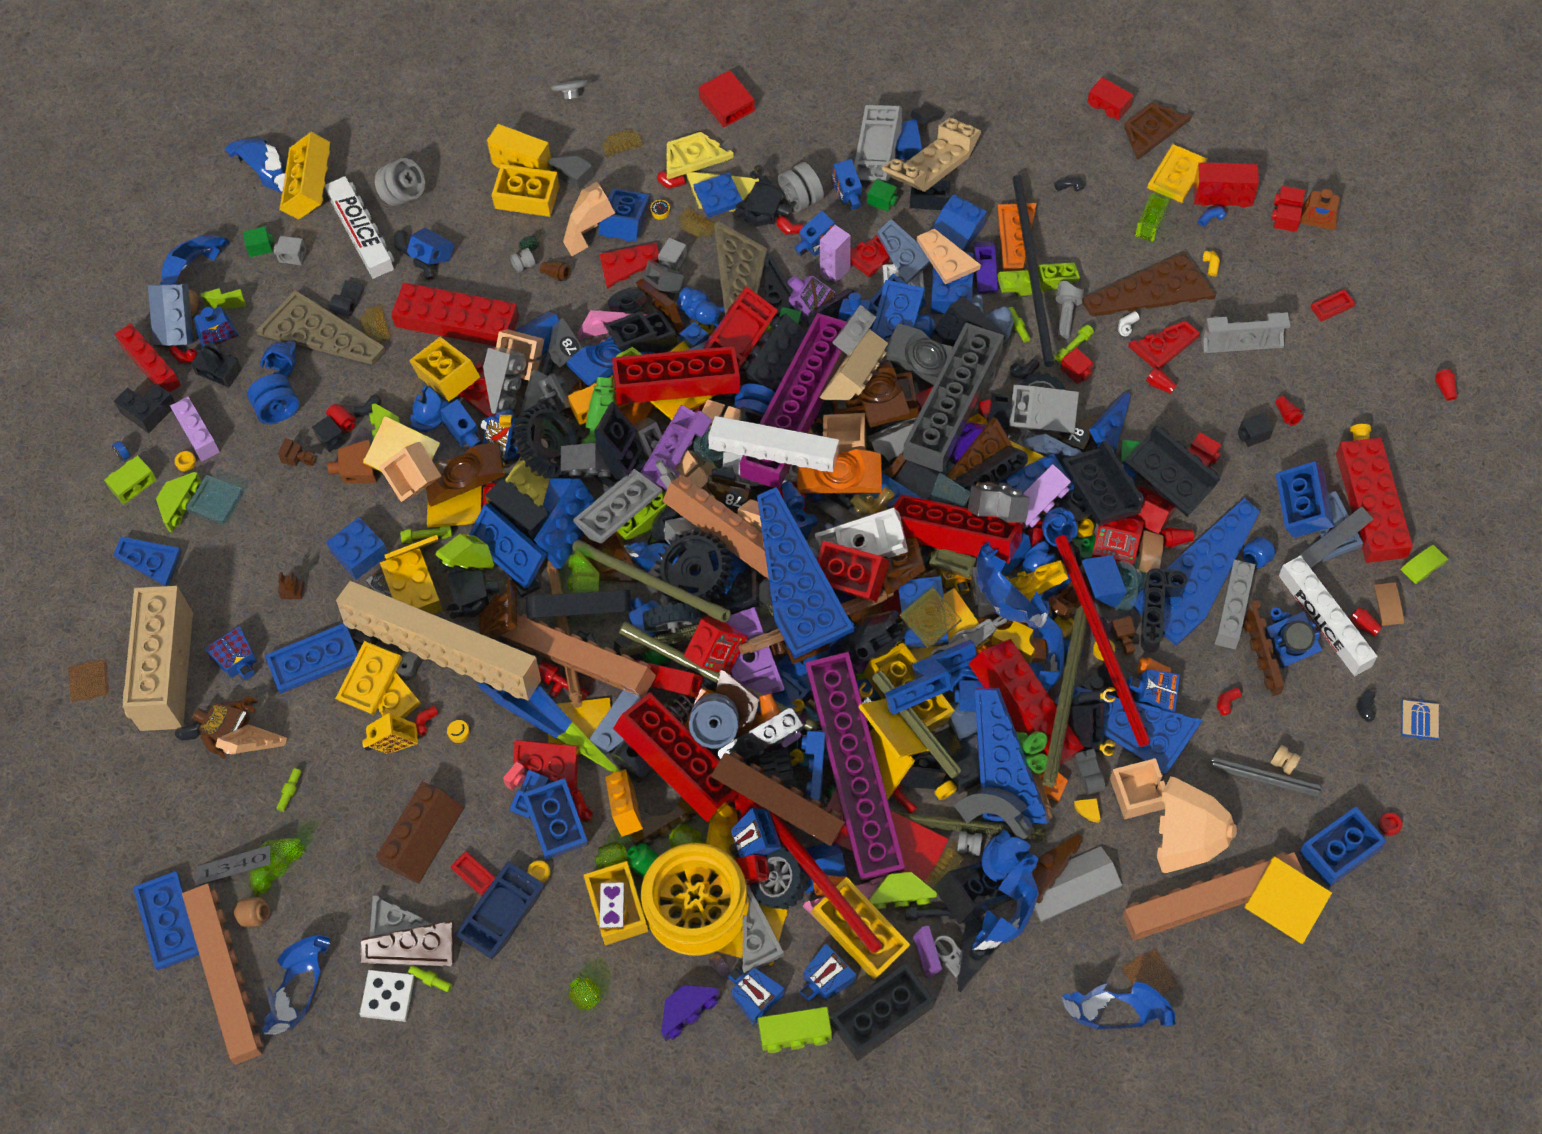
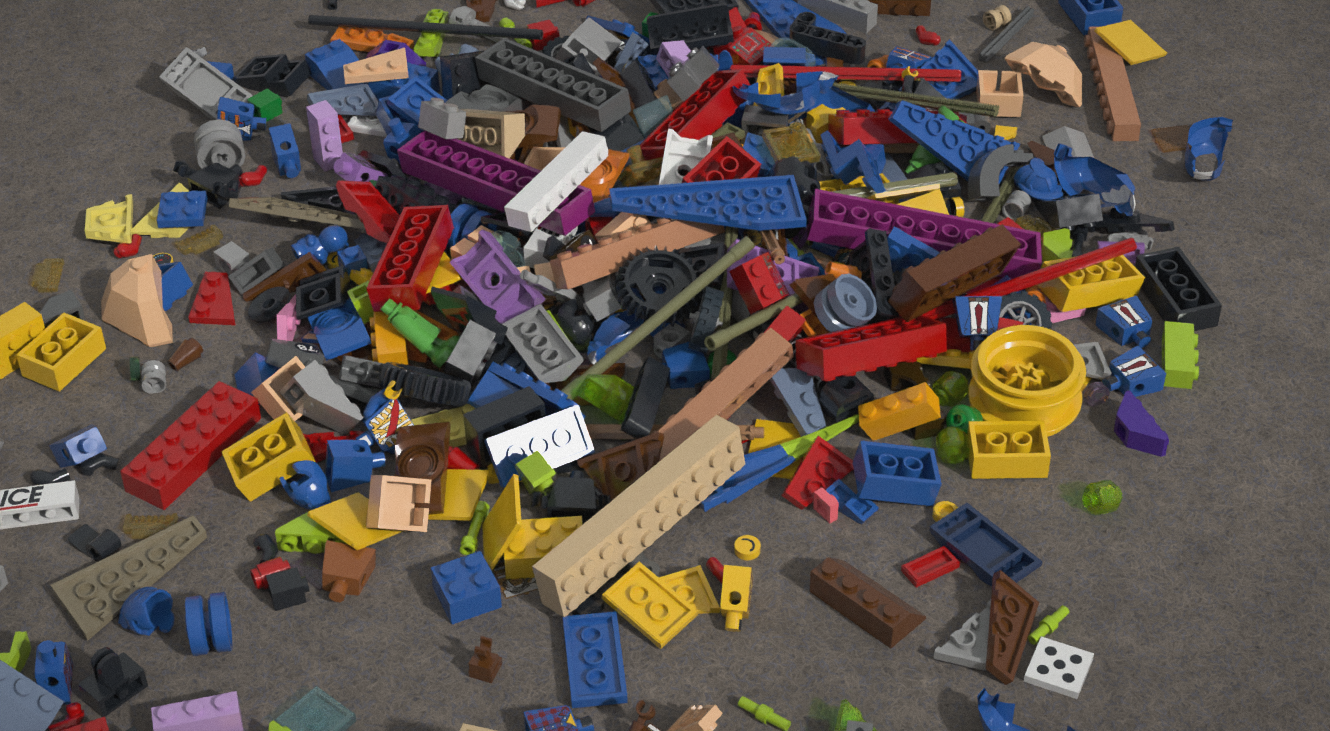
camera: 75 degrees left, 20 degrees down
(291, 454) = (292, 630): reddish brown piece -> none
(612, 906) = (1020, 437): tile -> none
(726, 98) = (56, 183): red brick -> none
(939, 158) = (248, 56): tan slope -> none

